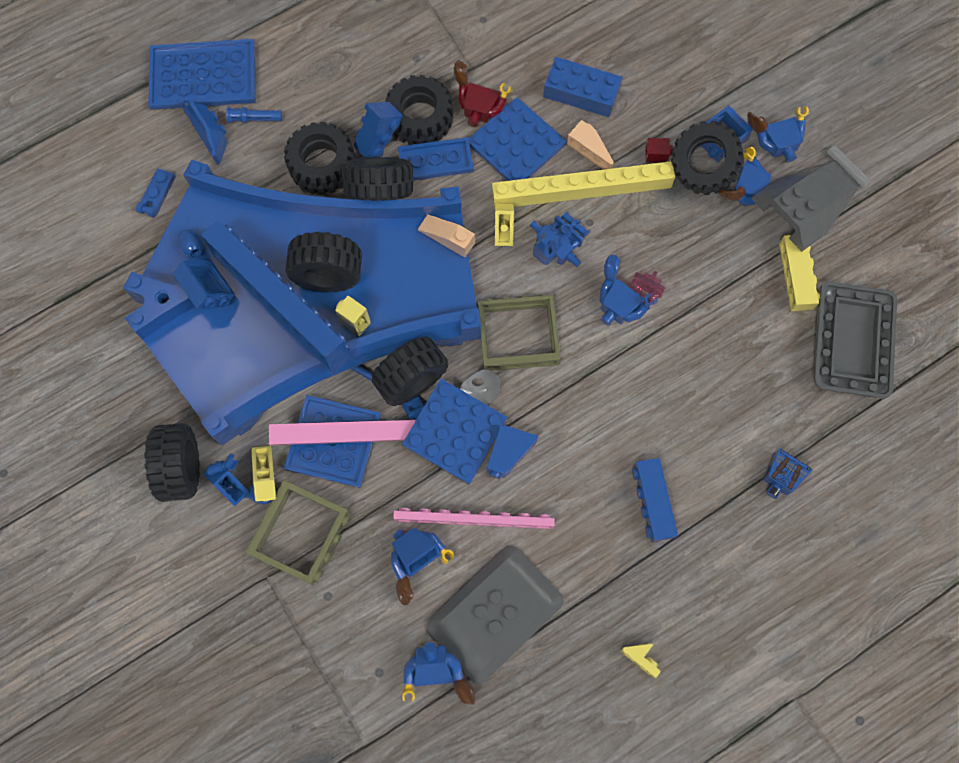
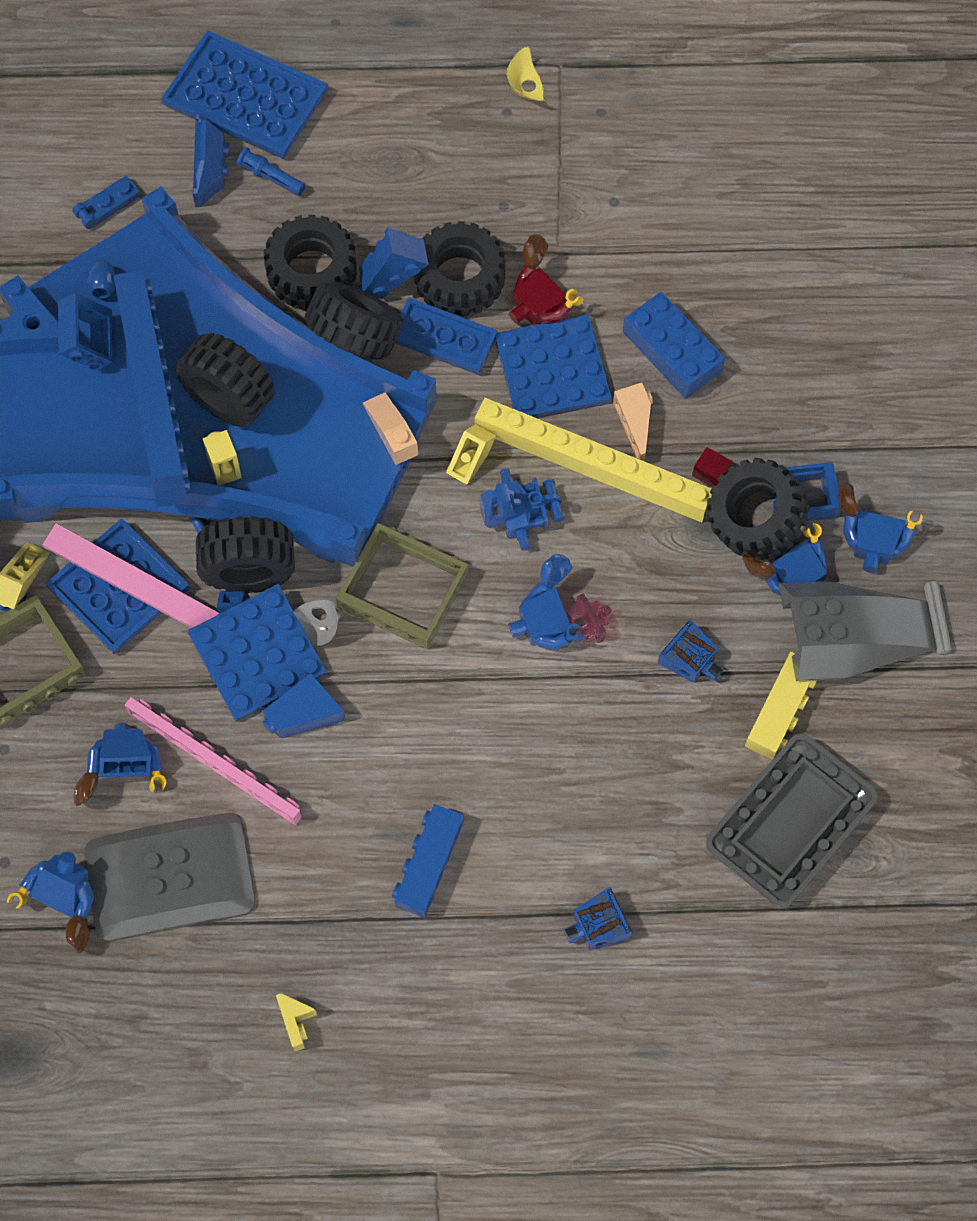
camera: 30 degrees right, 5 degrees down
(724, 272) = (691, 654): none -> torso

